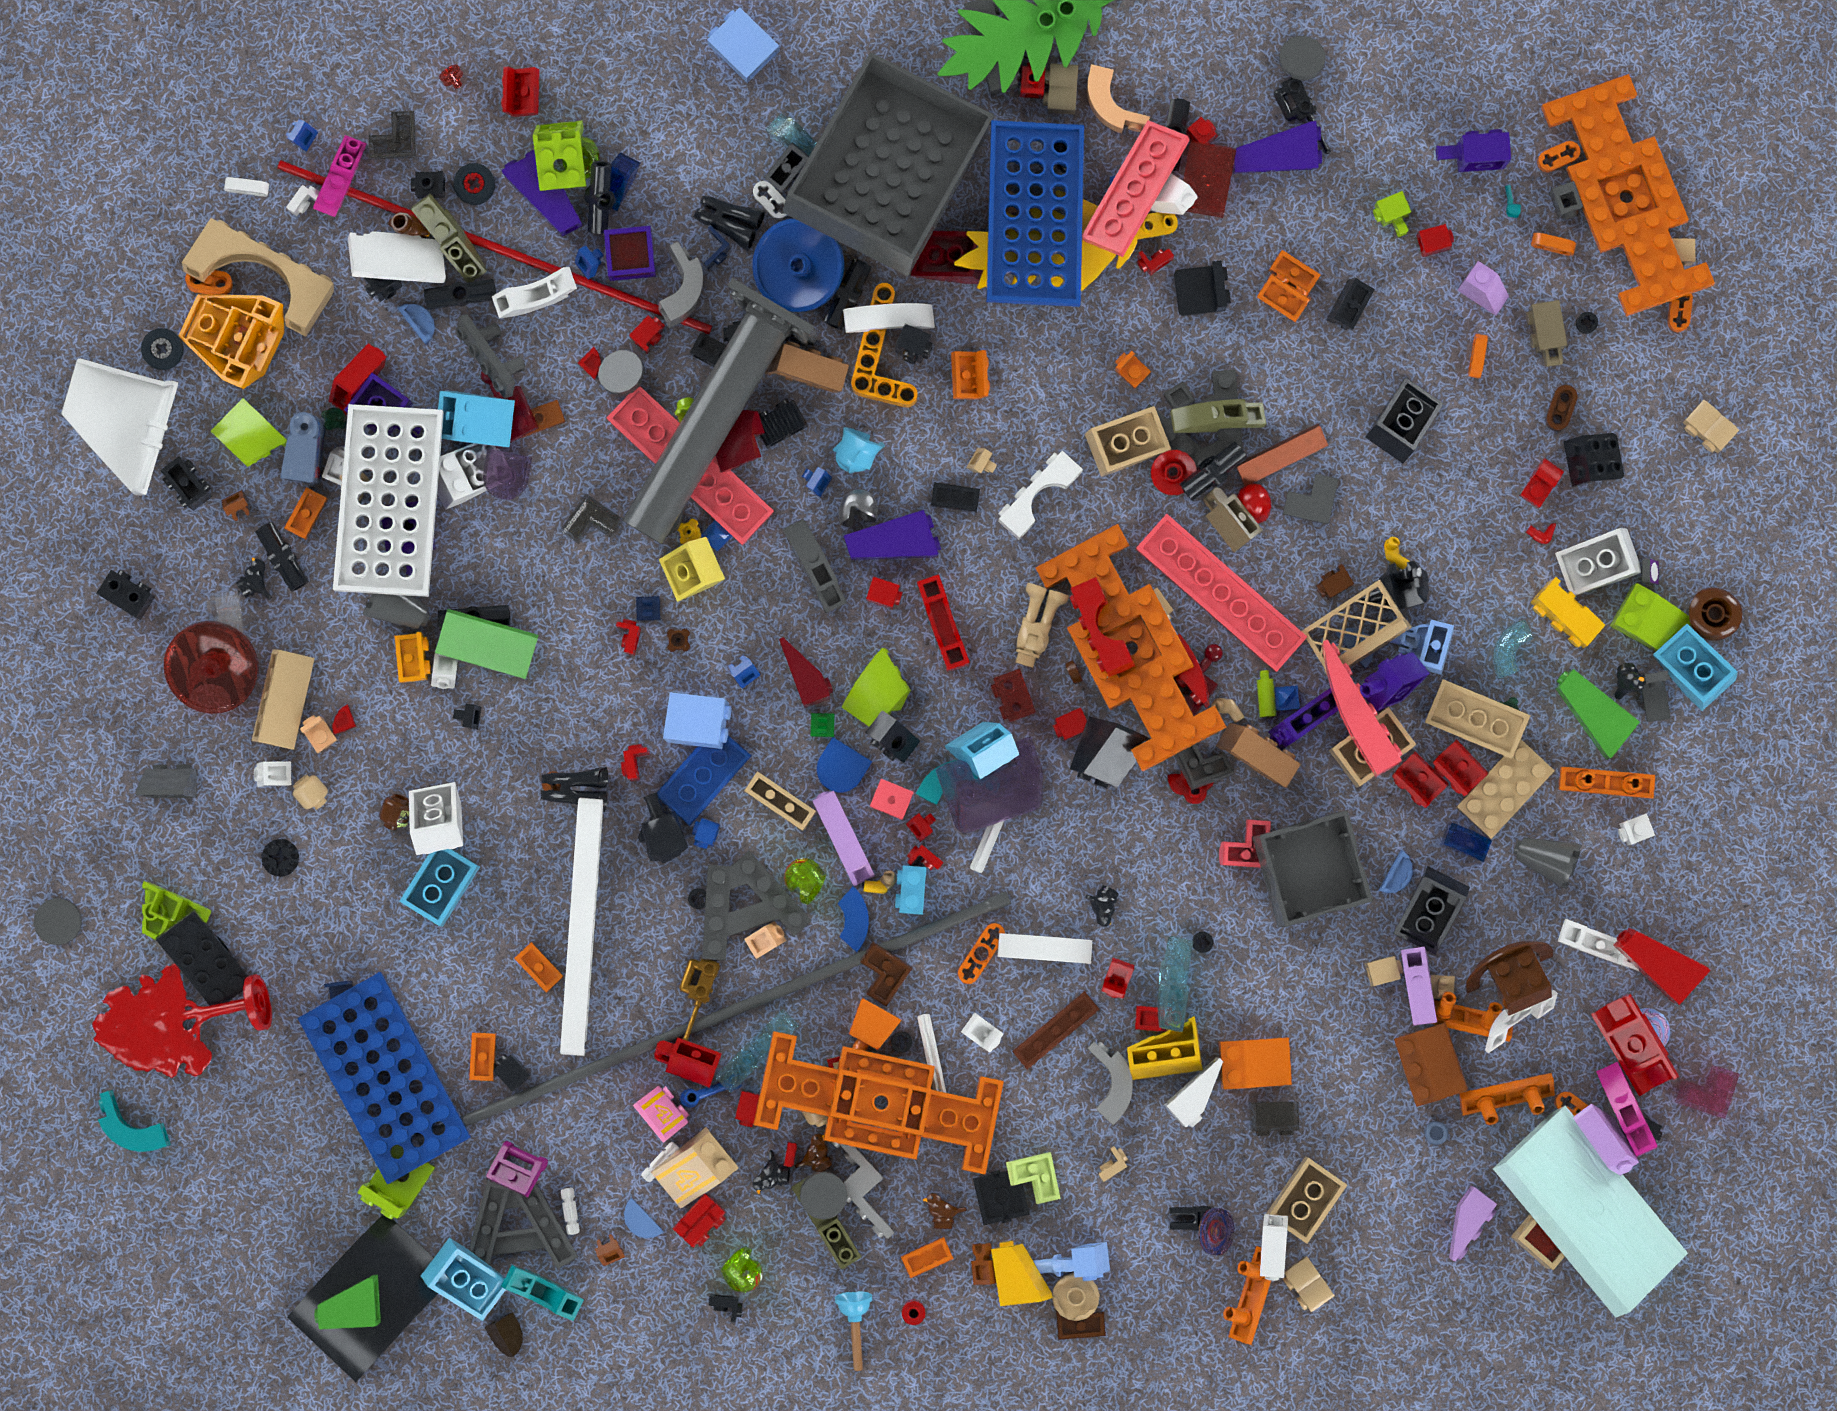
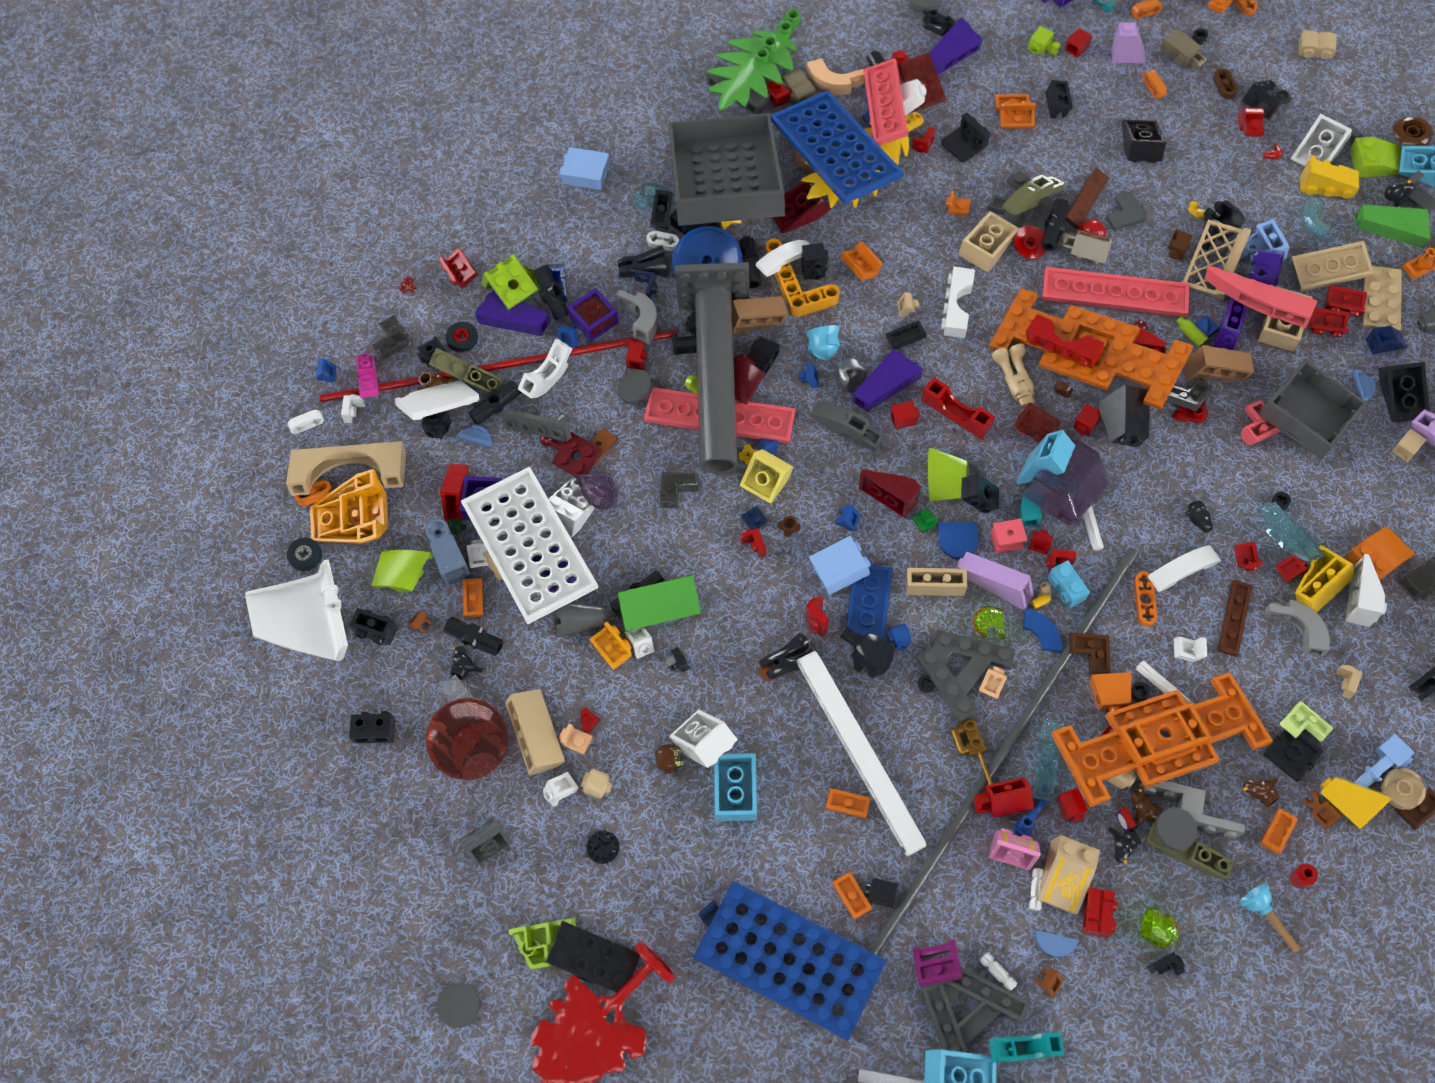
camera: 25 degrees left, 20 degrees down
(397, 1196) = (860, 1046): lime bracket -> none
(476, 418) = (557, 463): medium azure slope -> none
(591, 363) = (610, 395): red tile -> none

